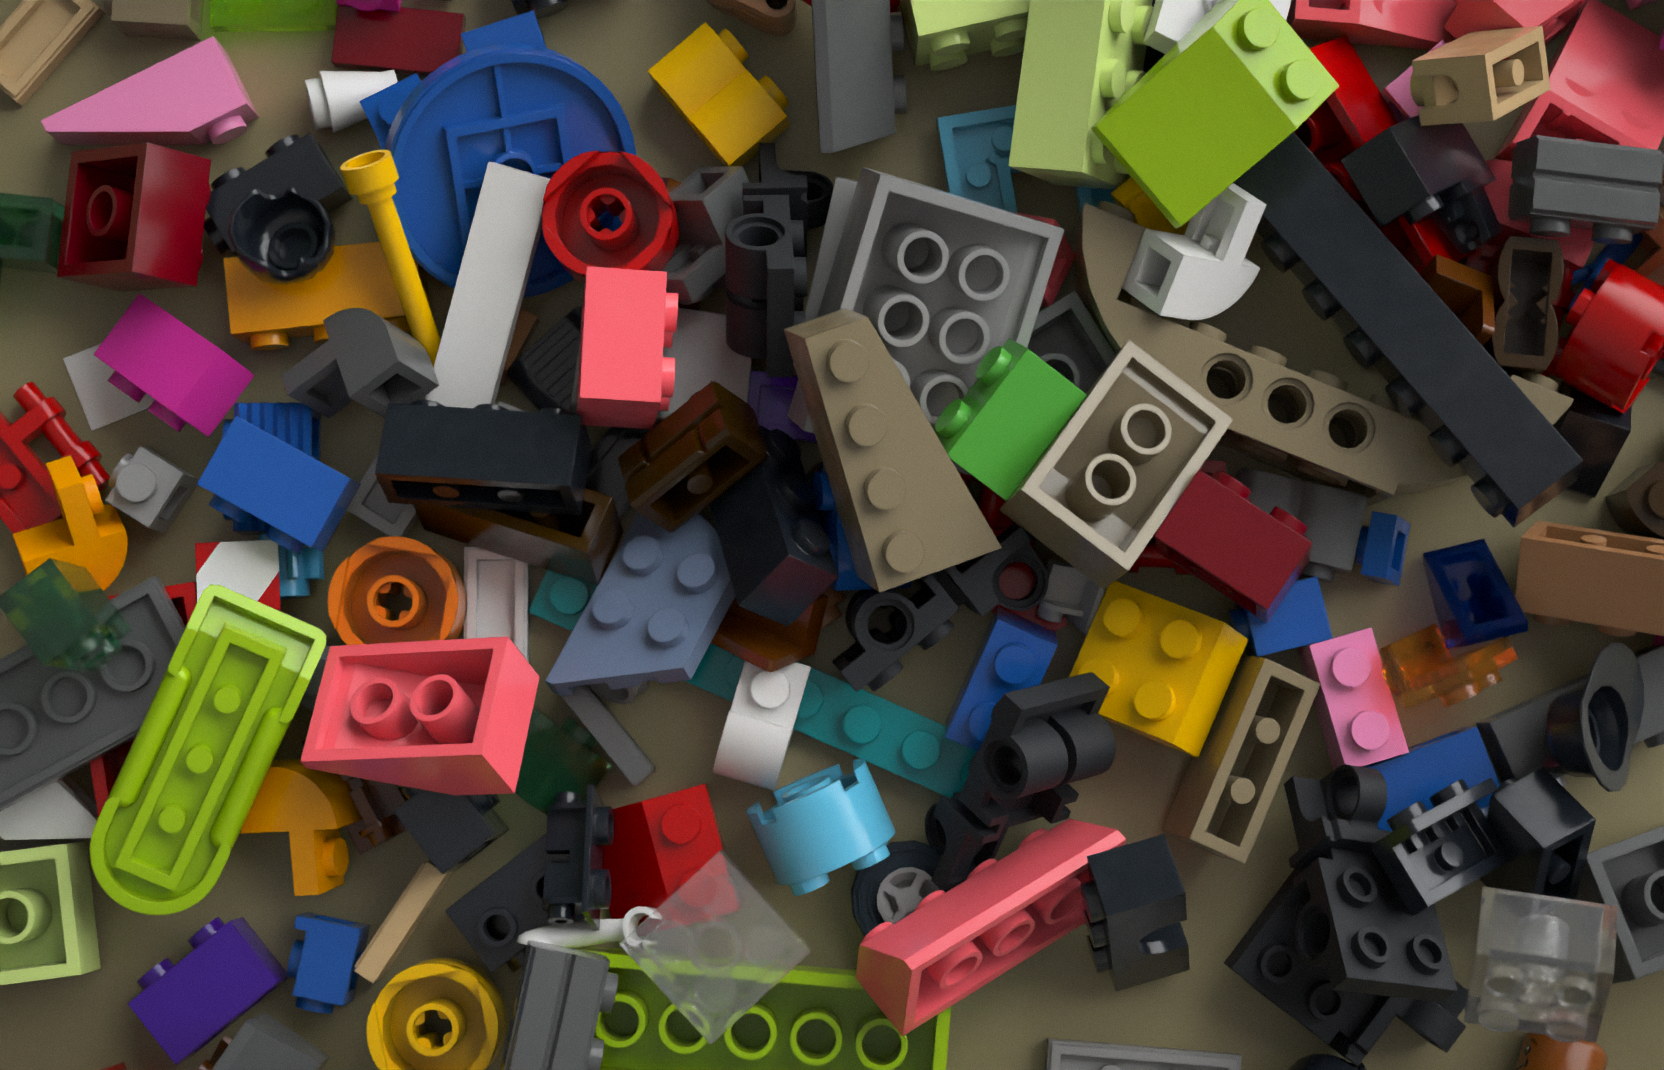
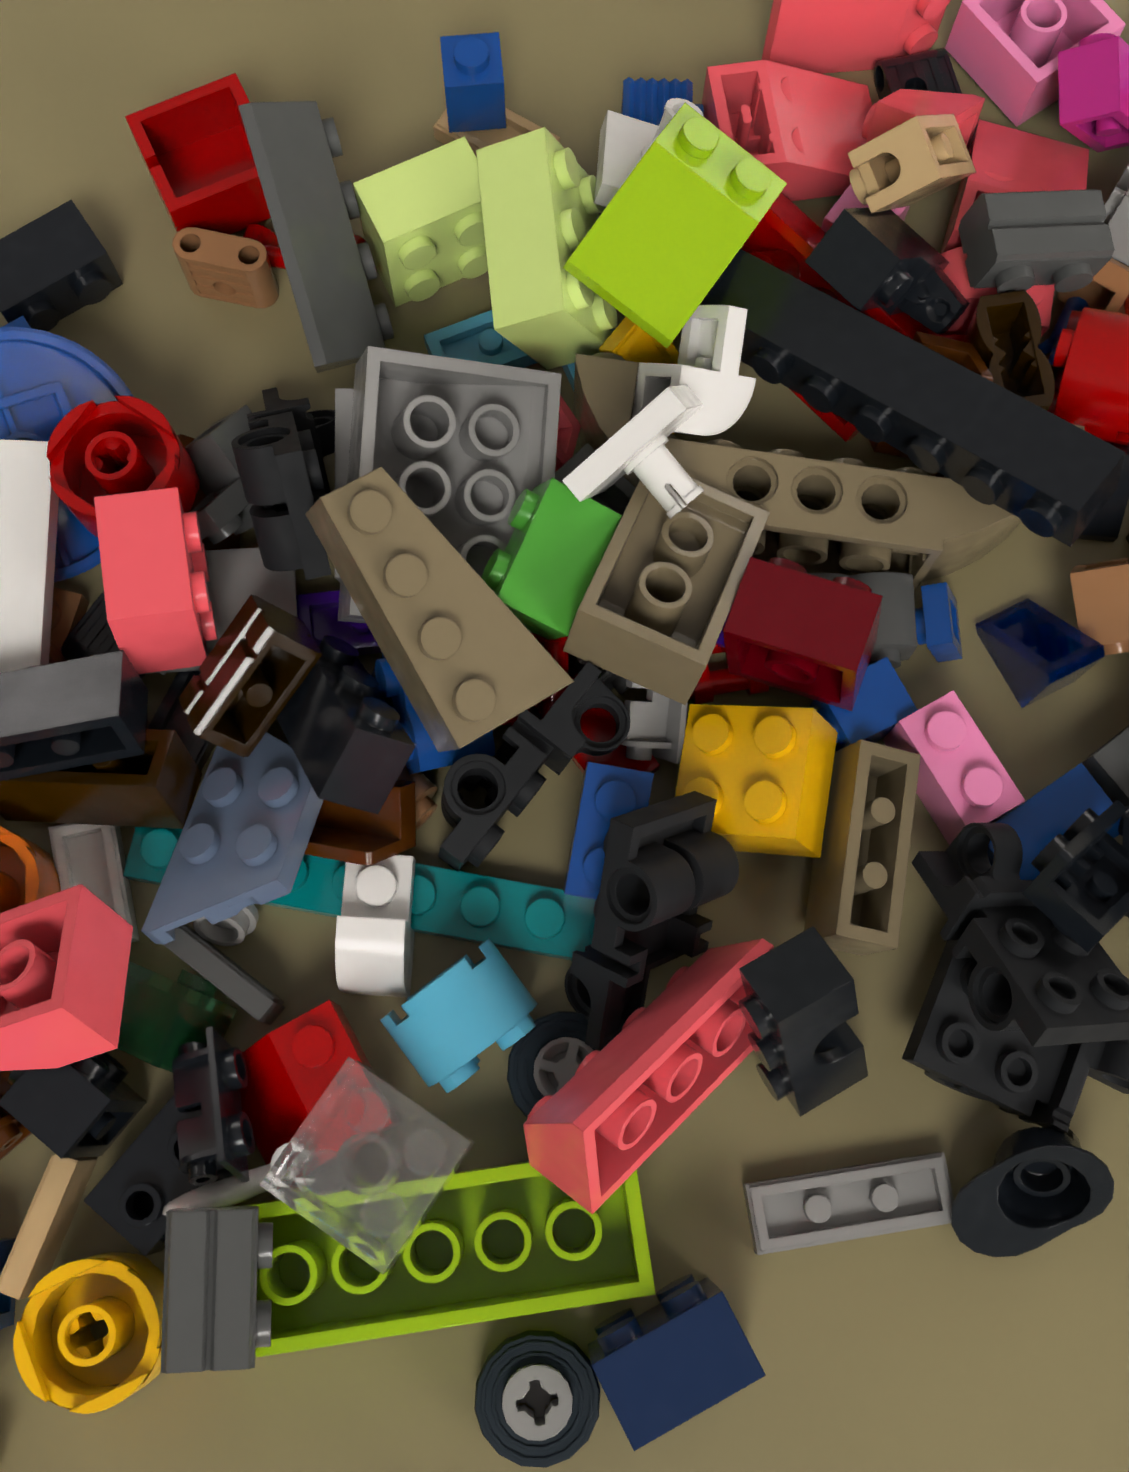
camera: 15 degrees left, 10 degrees down
(720, 96) = (215, 359): yellow brick -> none
(1121, 340) = (642, 450): none -> white tile
(1423, 669) = (1010, 724): clear orange bracket -> none

